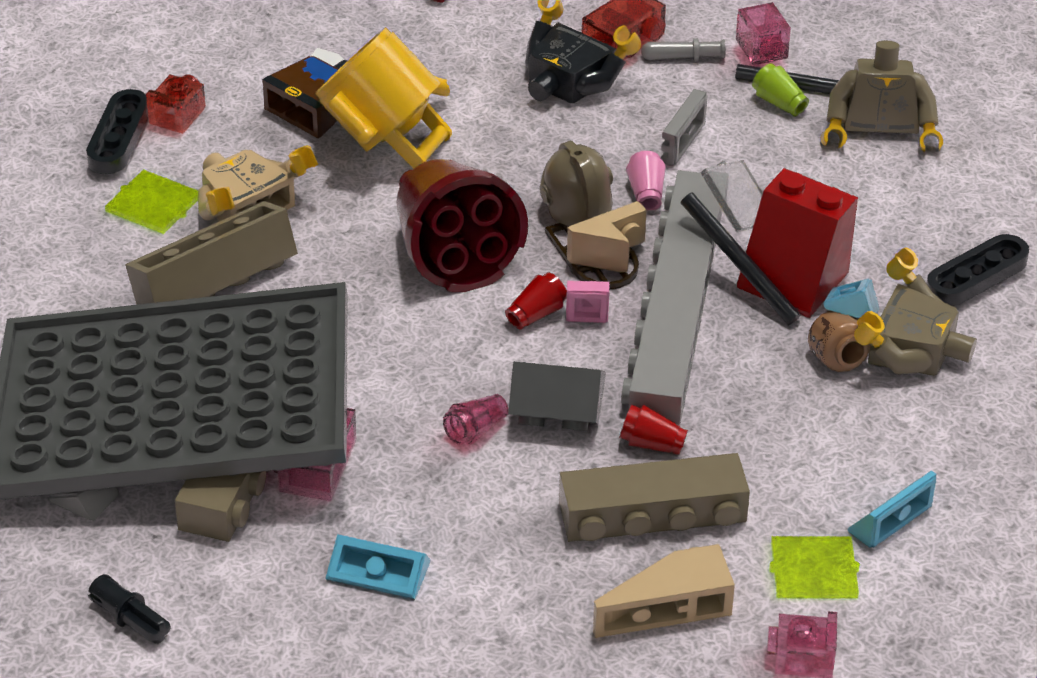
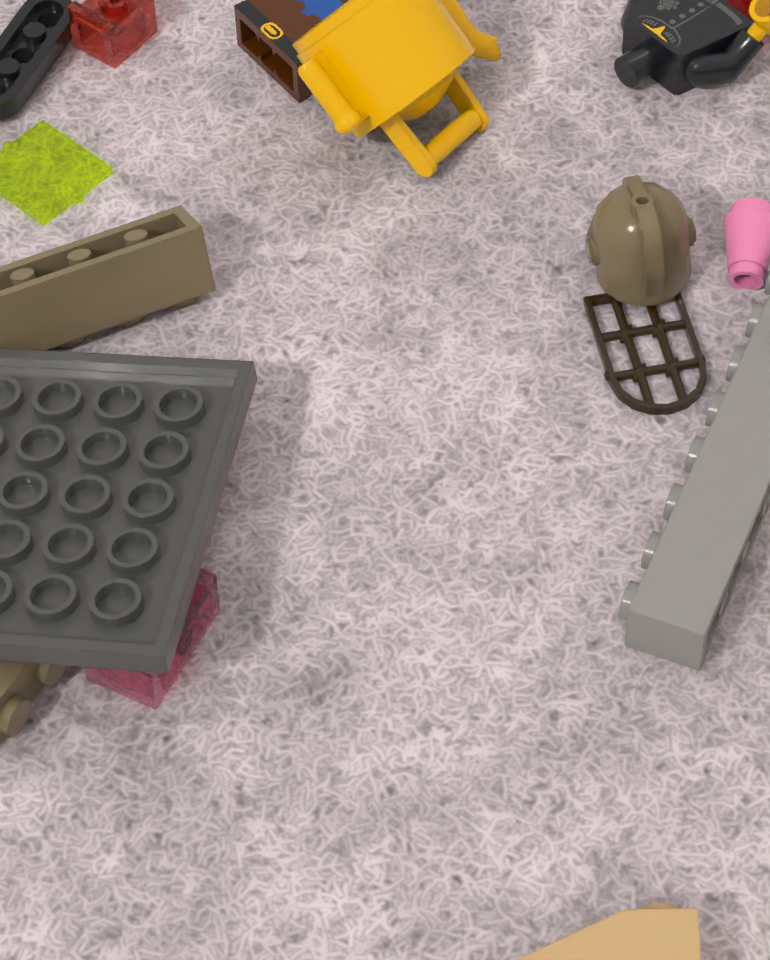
camera: 15 degrees right, 10 degrees up
(248, 180) = (172, 167): tan torso -> none
(377, 566) = (189, 839): medium azure slope -> none
(460, 224) = (446, 285): dark red cone -> none
(473, 418) = (394, 608): clear pink cone -> none
(539, 299) = (537, 423): red cone -> none
(556, 393) = (524, 588): dark grey slope -> none
(587, 301) = (610, 437): bright pink tile -> none
(606, 239) = (659, 335): tan slope -> none
(652, 431) = (652, 676): red cone -> none
(653, 497) = (625, 796): dark tan brick -> none

